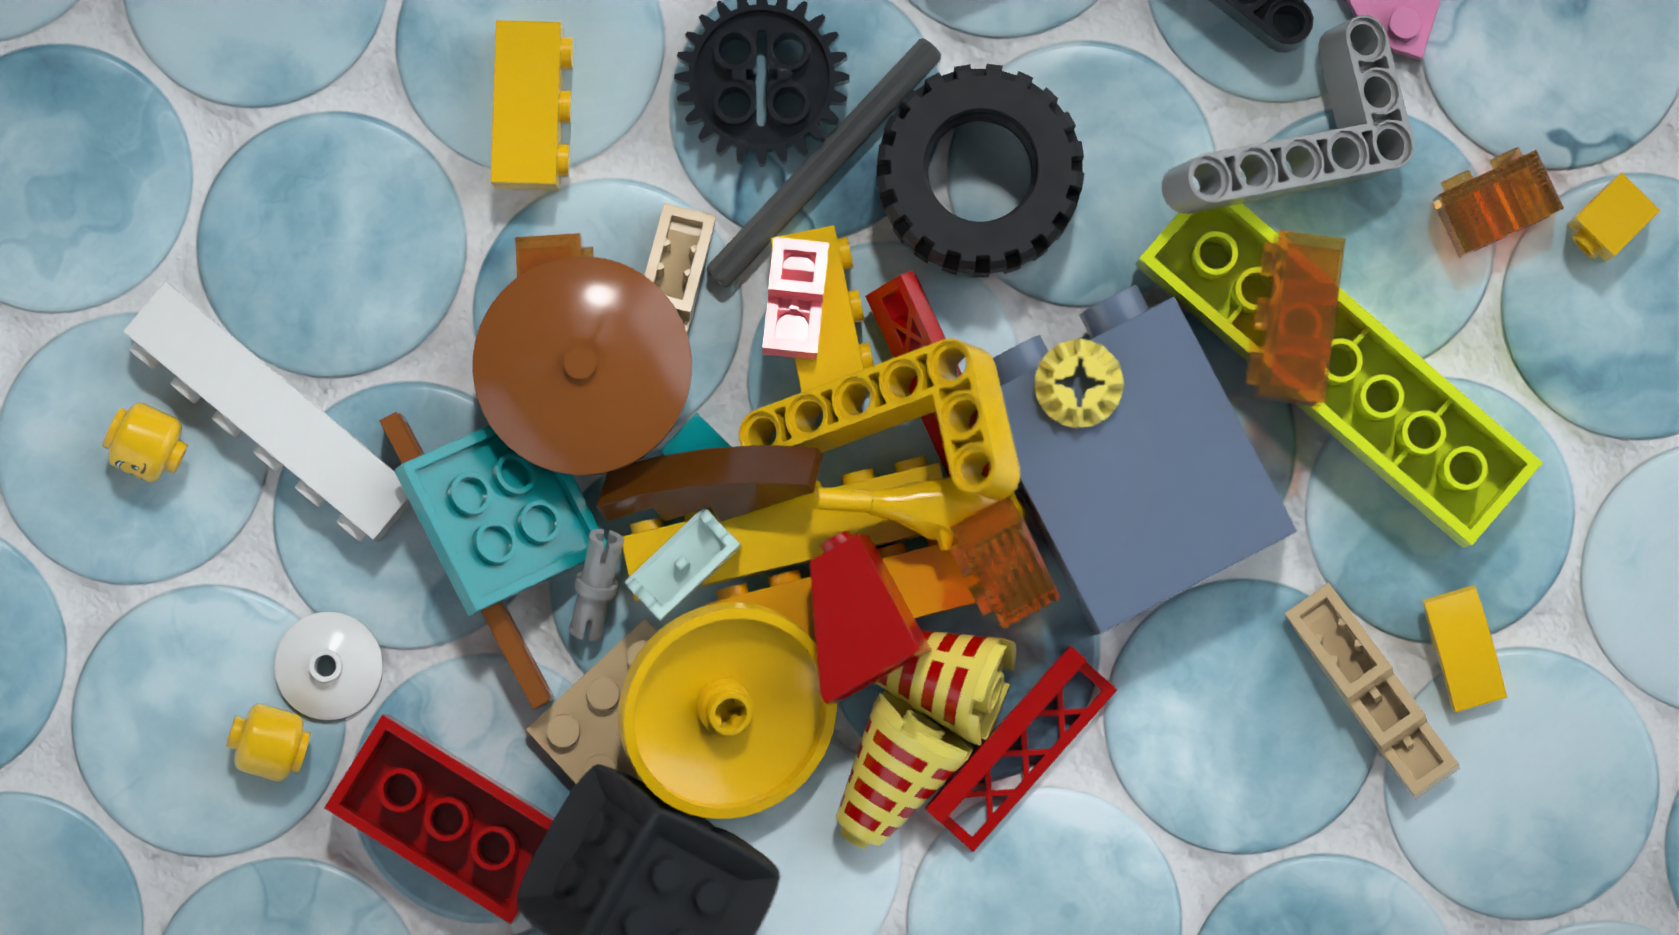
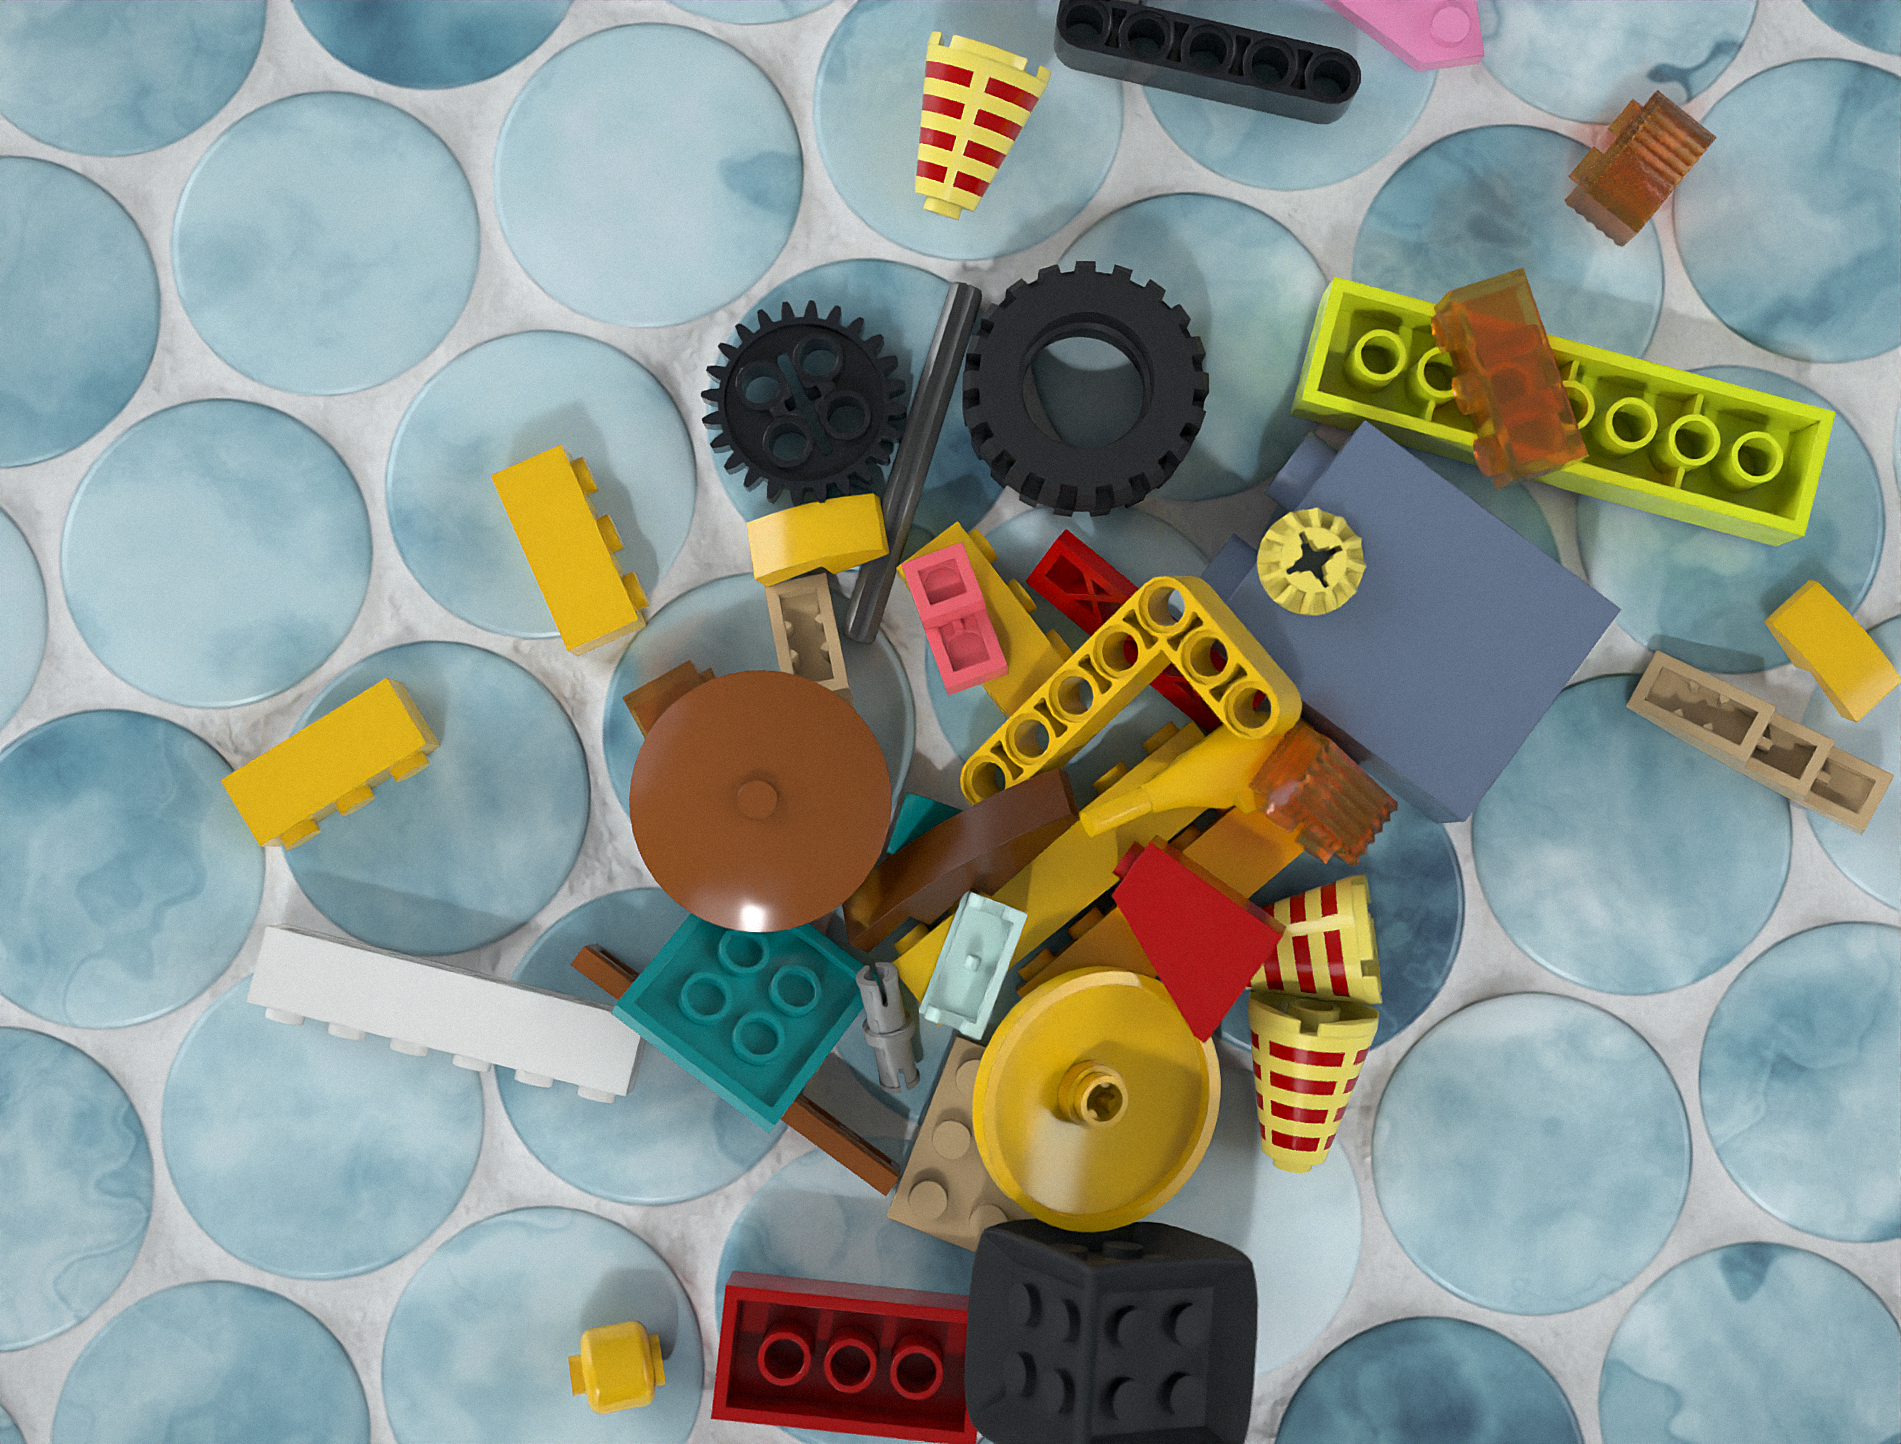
camera: 30 degrees left, 0 degrees up
(145, 442) = (329, 1108): yellow head -> none
(269, 183) = (332, 765): none -> yellow brick
(356, 672) = (663, 1223): white dish -> none
(722, 183) = (815, 535): none -> yellow slope
(1003, 737) = (1402, 969): red fence -> none
(1354, 142) = (1472, 164): light grey beam -> none
(1612, 219) = (1766, 126): yellow brick -> none

